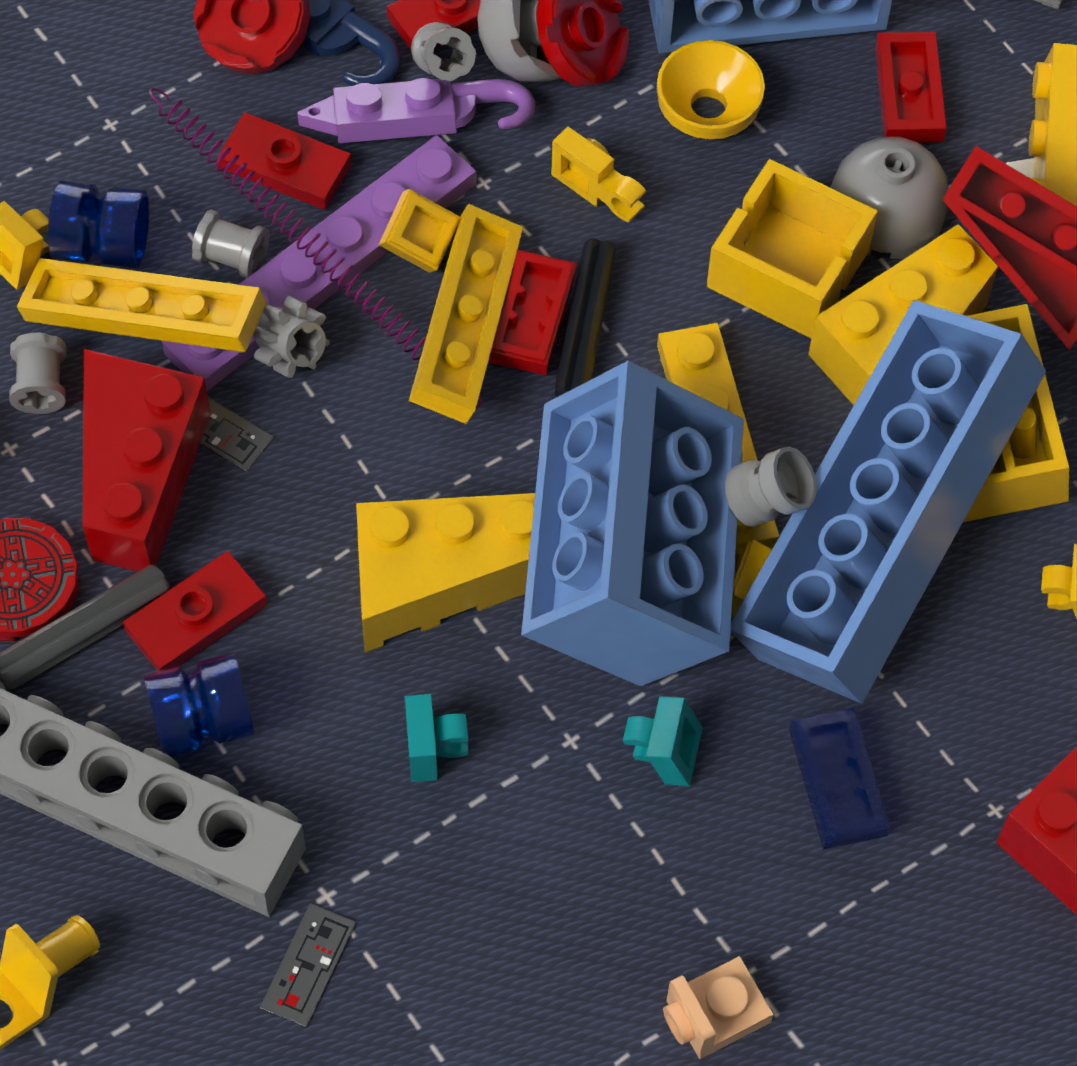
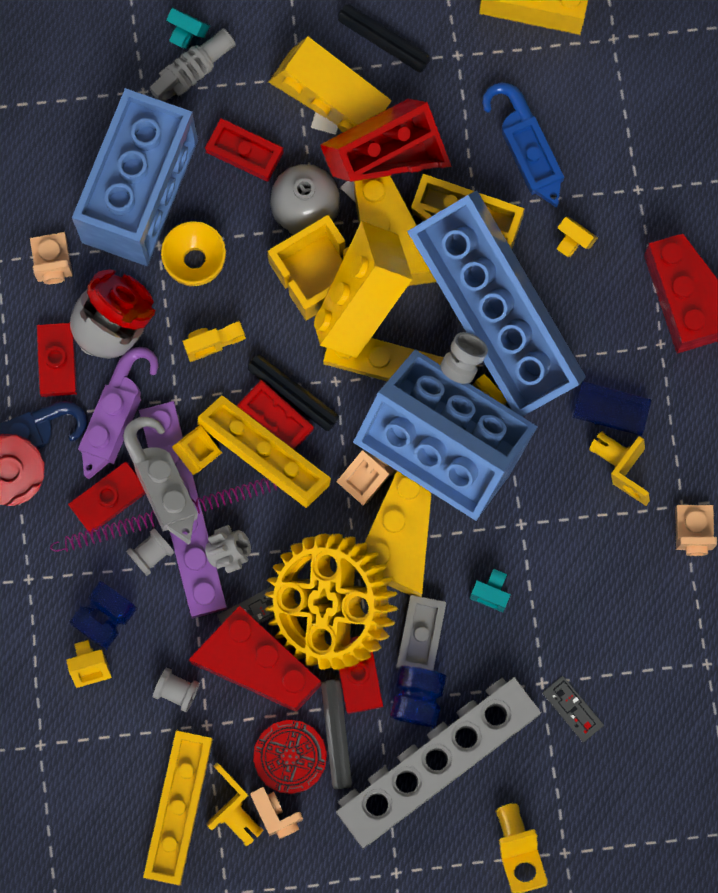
camera: 60 degrees left, 15 degrees up
(142, 304) = (169, 617): yellow plate -> none
(279, 498) = (332, 586): none -> yellow gear
(305, 669) = (421, 633): none -> light grey plate
(336, 191) = (161, 481): none -> light grey plate
(443, 68) = (87, 376): light grey bush -> none
(504, 466) = (365, 476): none -> light nougat bracket
(667, 740) = (553, 478): teal tile -> none
(763, 833) = (623, 460): none -> yellow bracket
(786, 295) = (363, 290): none -> yellow wedge

